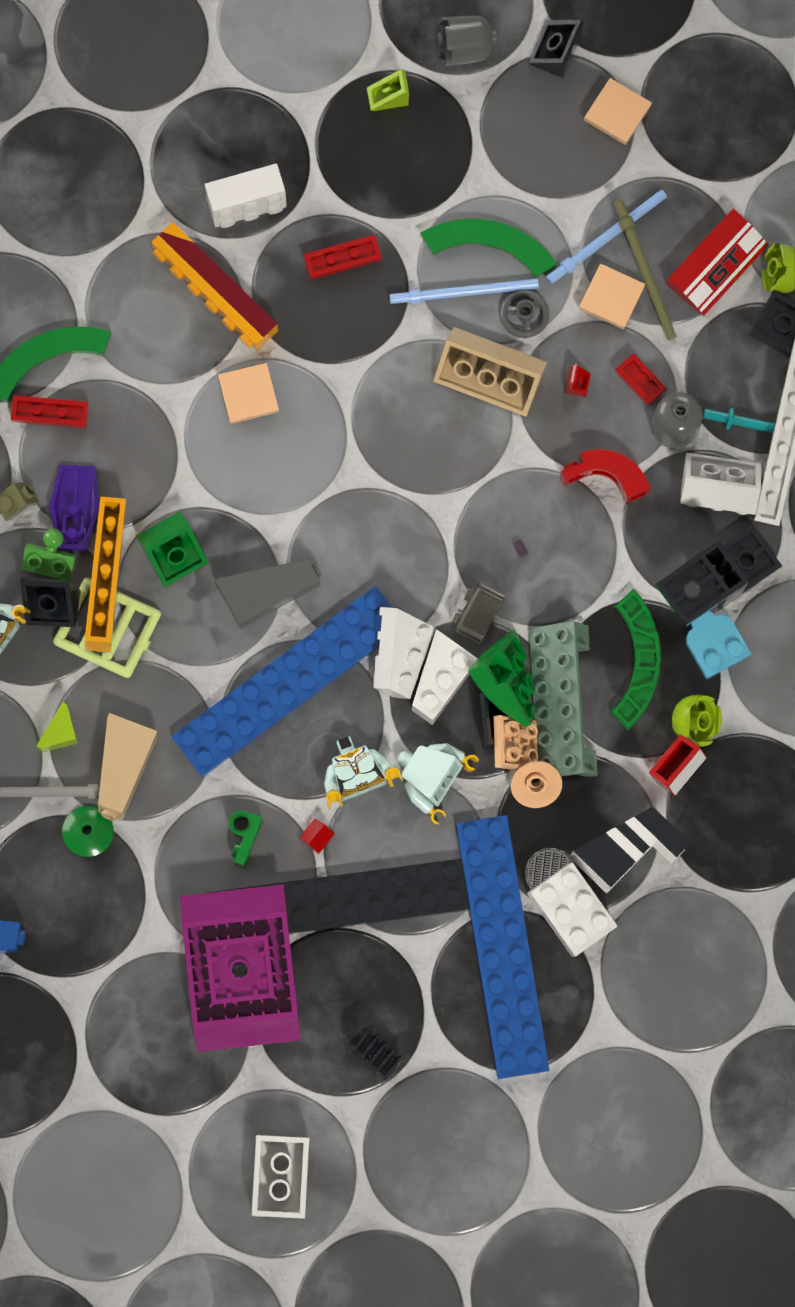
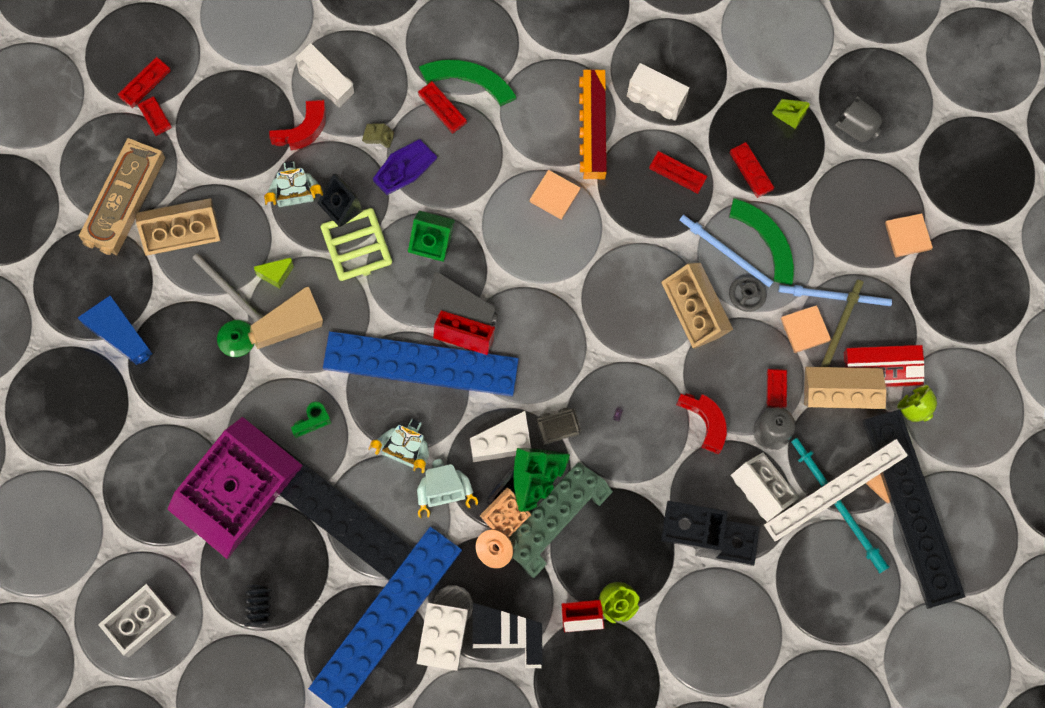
camera: 45 degrees right, 5 degrees down
(47, 559) = (361, 179): bright green plate -> none
(105, 574) = (380, 213): light orange brick -> none
(302, 611) = (464, 332): none -> red brick
(316, 836) = (349, 459): red slope -> none
(401, 652) = (494, 404): white wedge -> none
(408, 187) = (751, 170): none -> red plate
(556, 46) = (909, 171): black slope -> none
(577, 381) = (740, 357): red slope -> none
(646, 662) = (623, 544): green tile -> none
(703, 319) = (844, 387): none -> tan slope
(716, 644) = (673, 571): medium azure plate -> none

